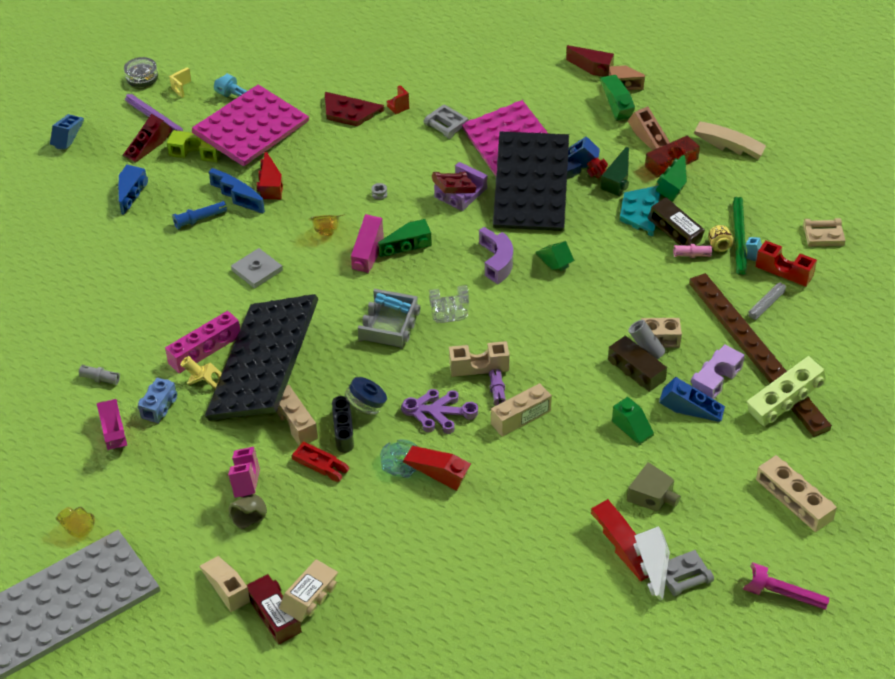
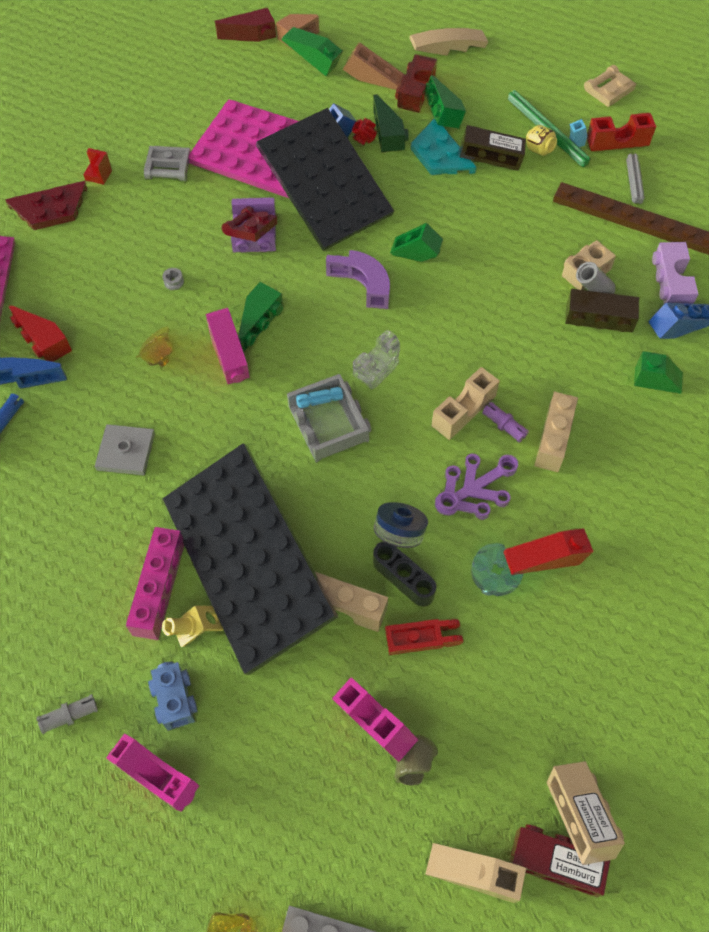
camera: 40 degrees left, 15 degrees up
(692, 251) = (528, 166): bright pink pin -> none

